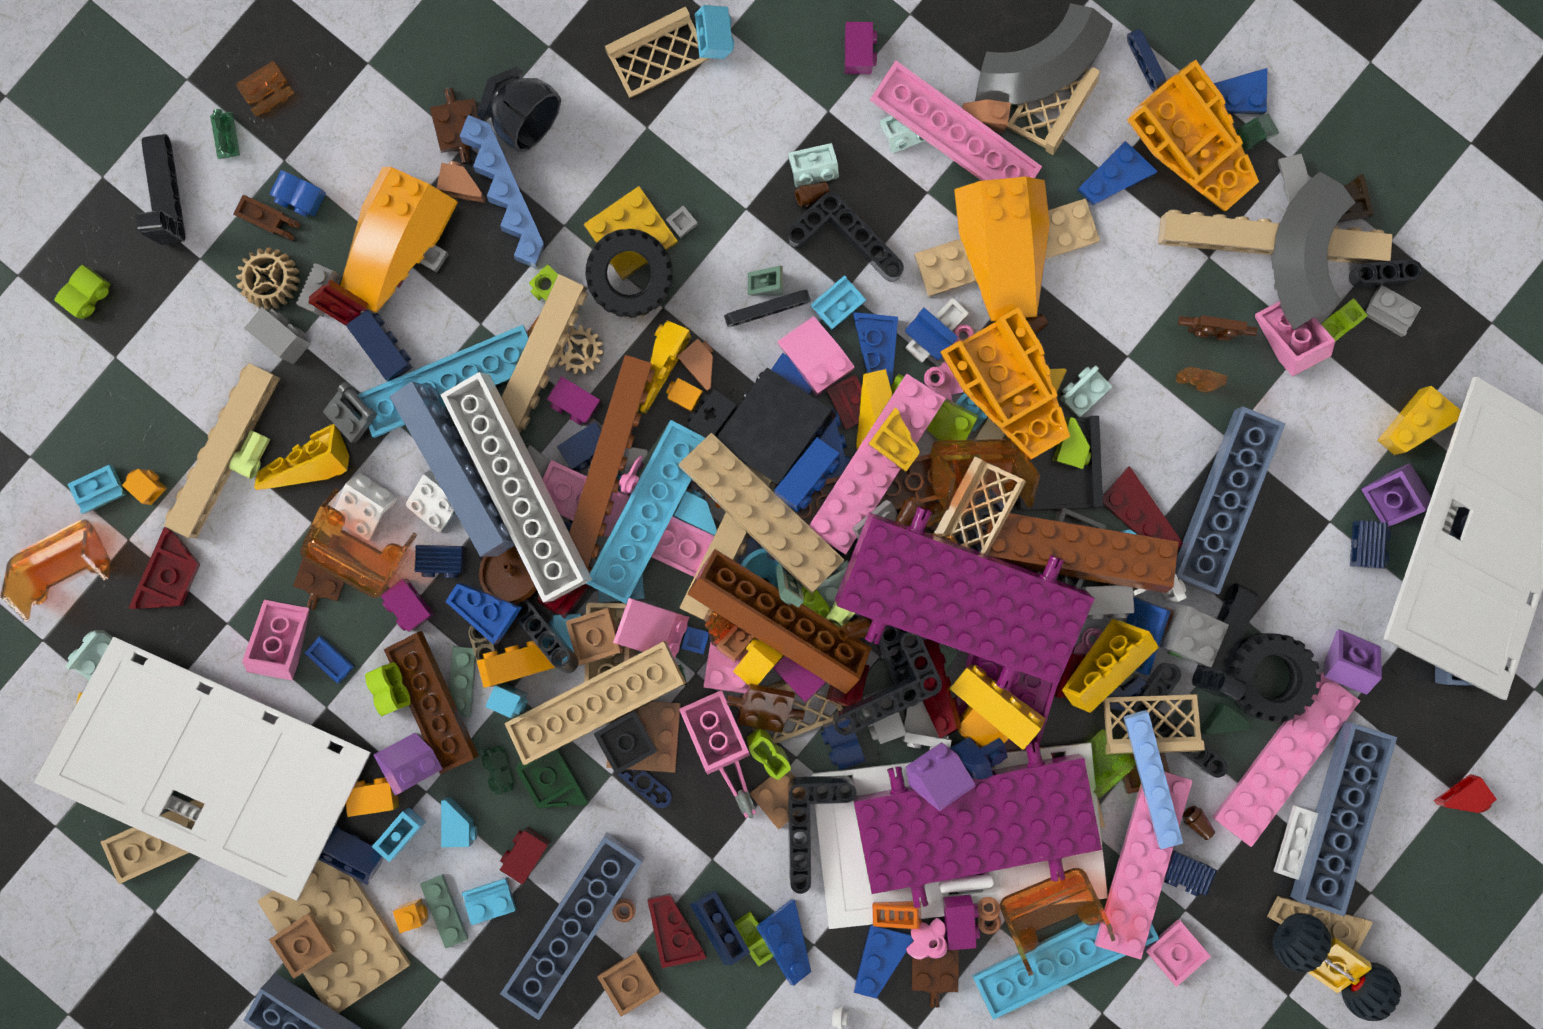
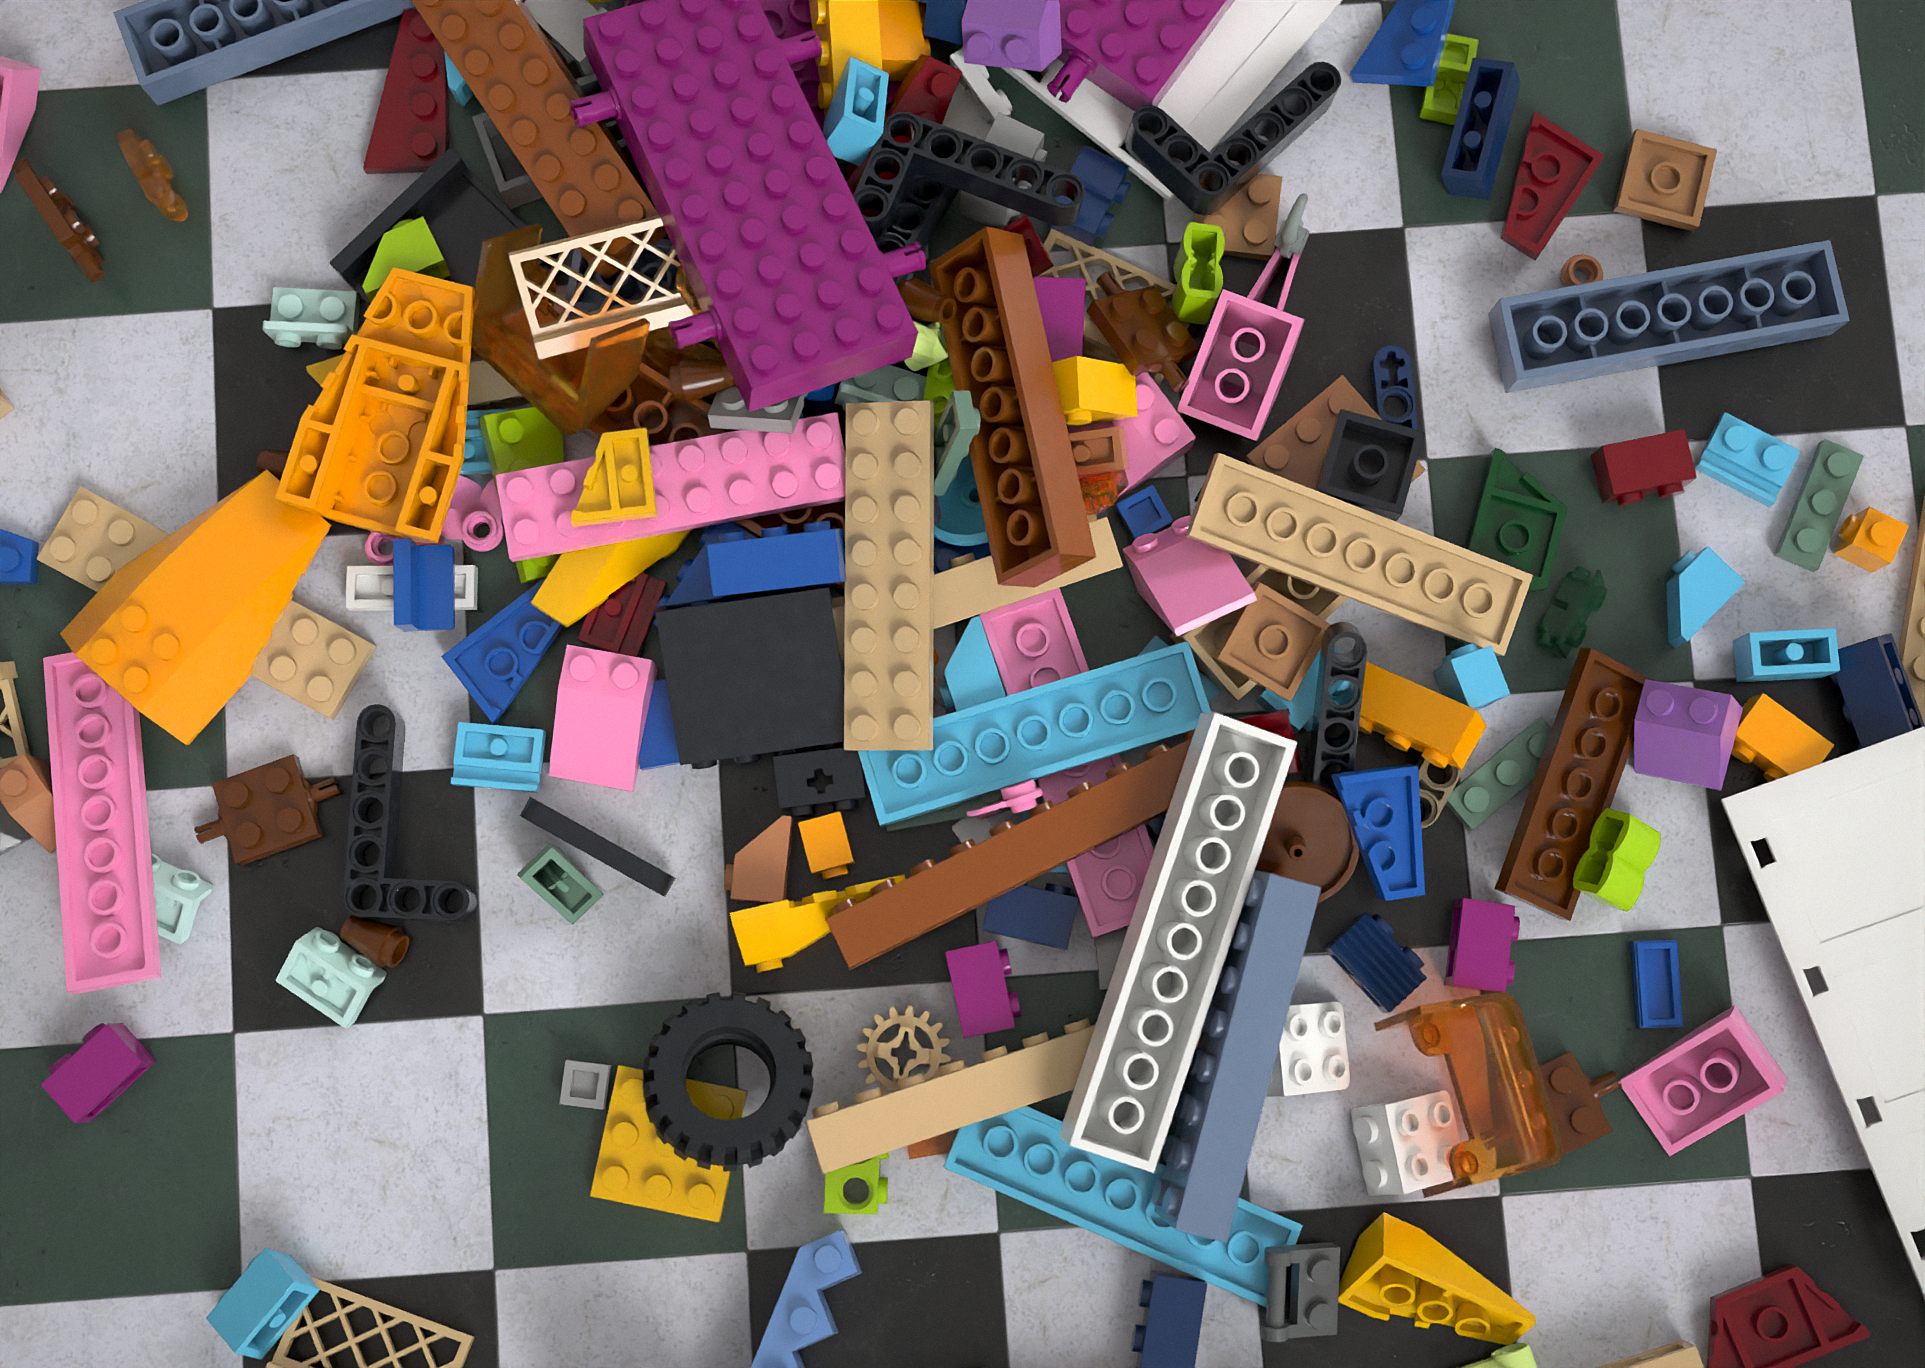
camera: 135 degrees left, 5 degrees down
(901, 198) = (267, 810): none -> reddish brown plate
(957, 674) = (856, 111): none -> medium azure slope

